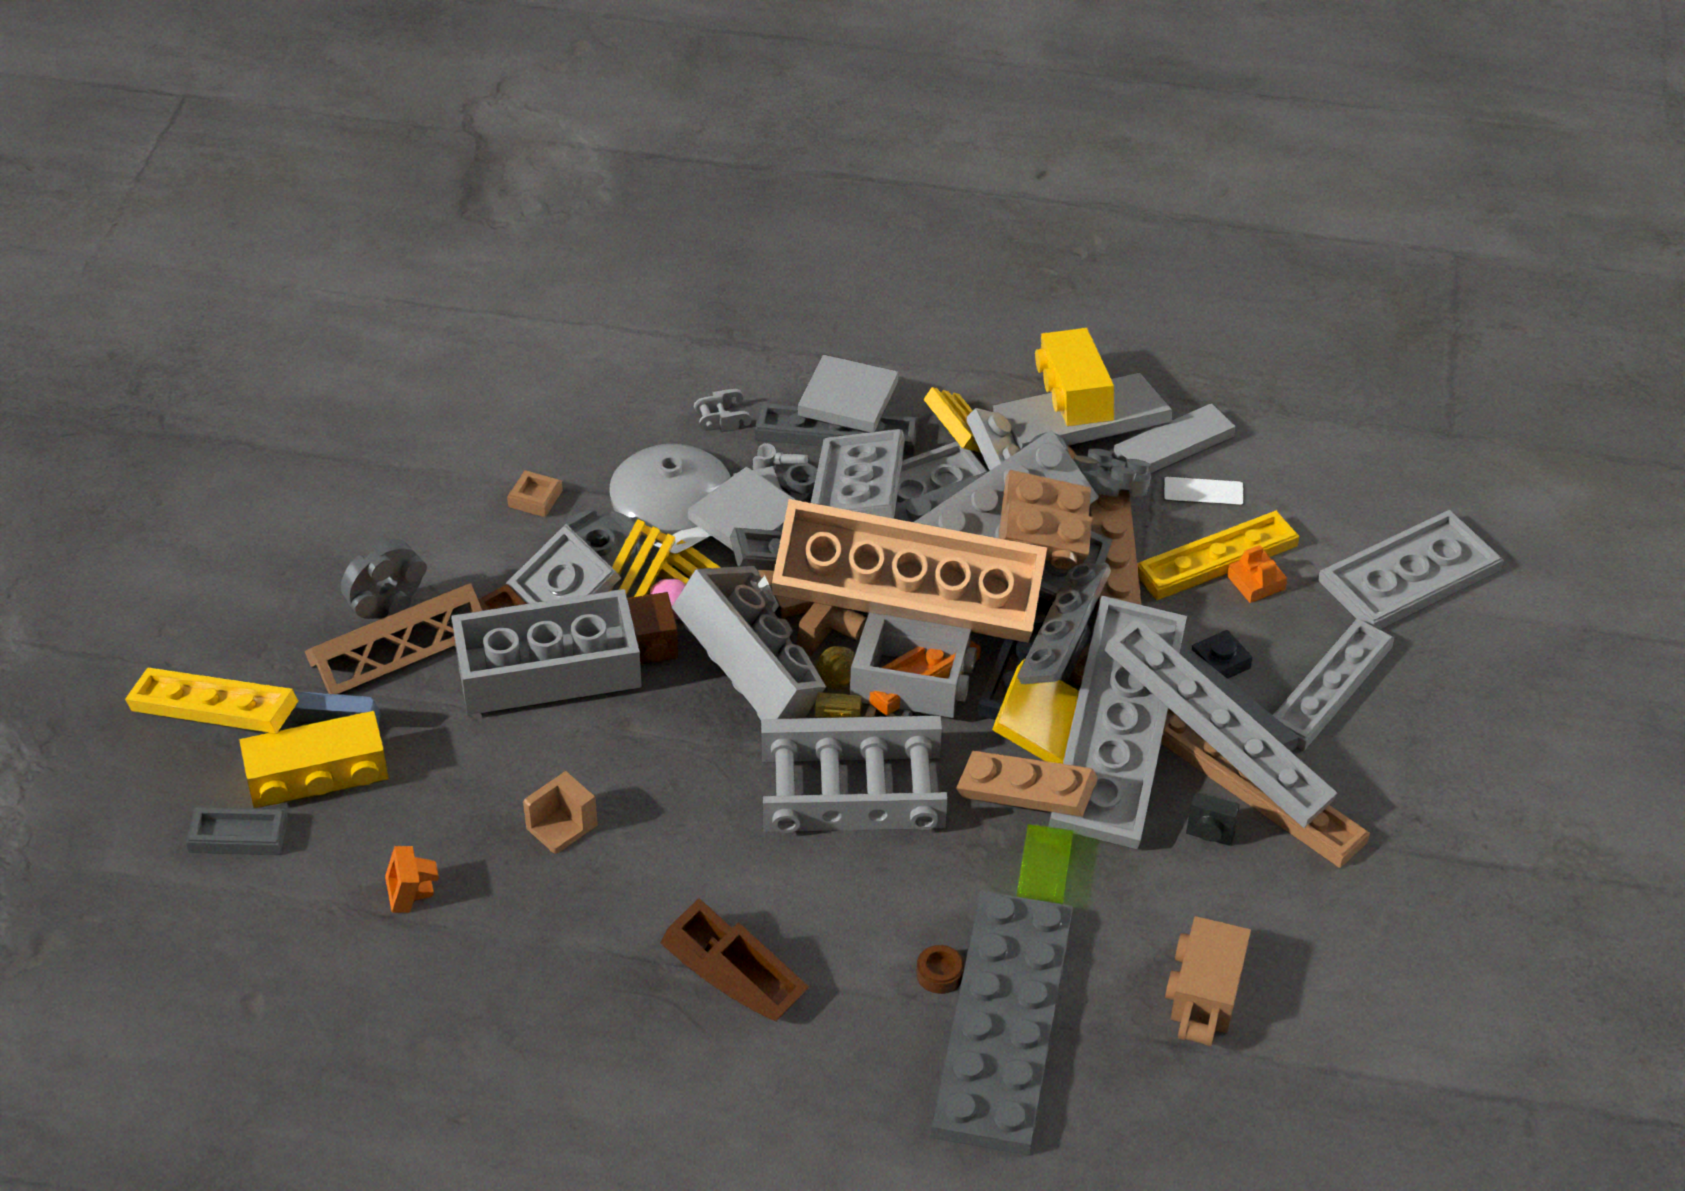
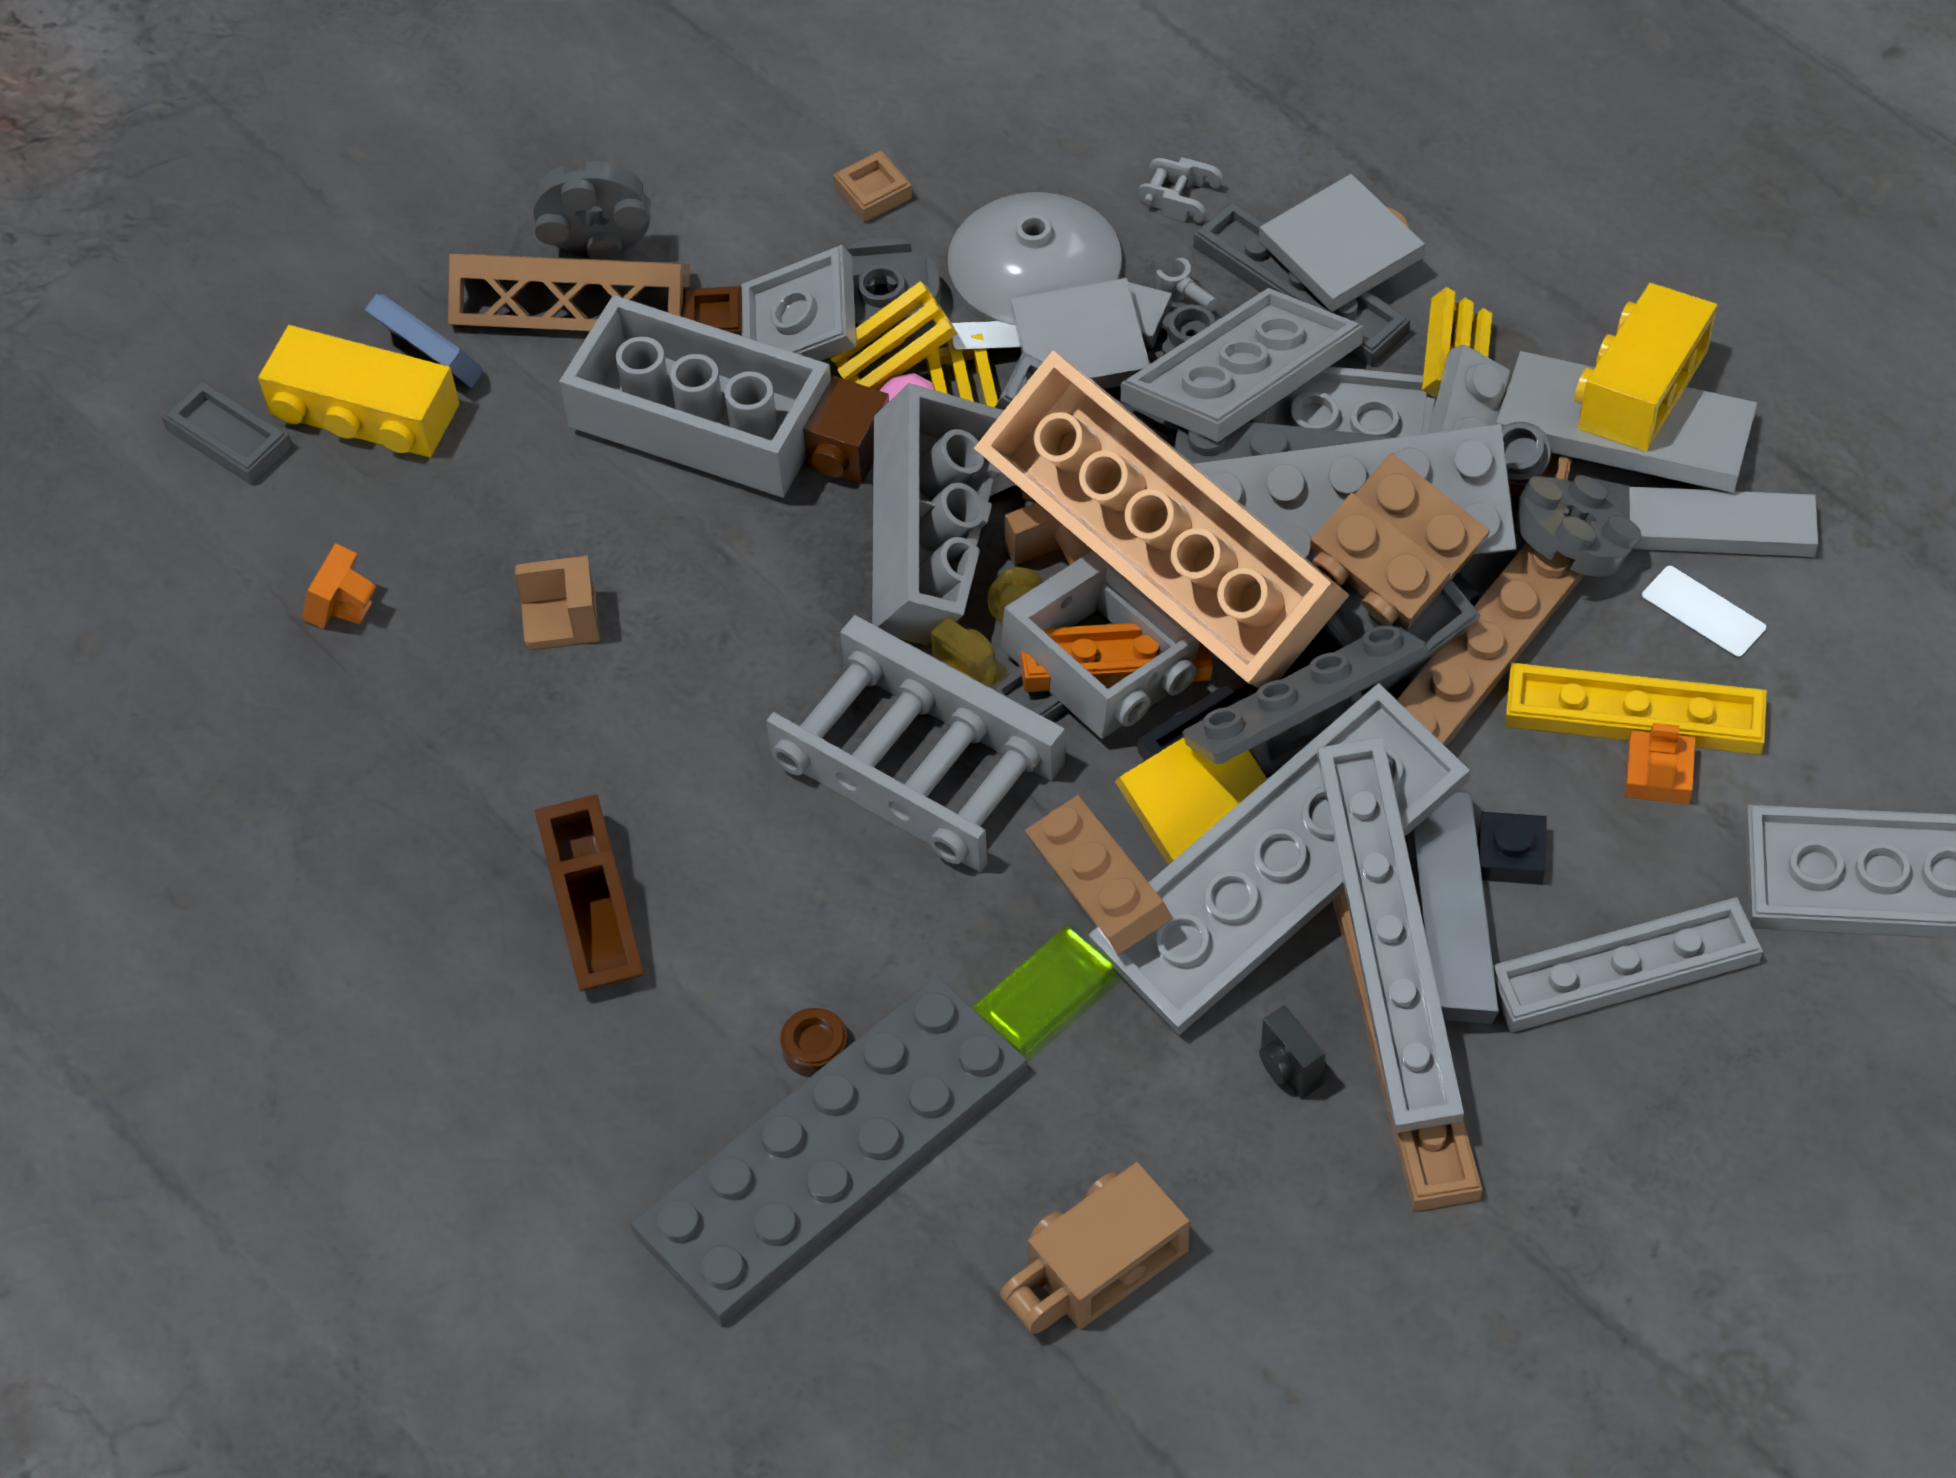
camera: 40 degrees right, 10 degrees up
(212, 700) = (306, 263): yellow plate -> none

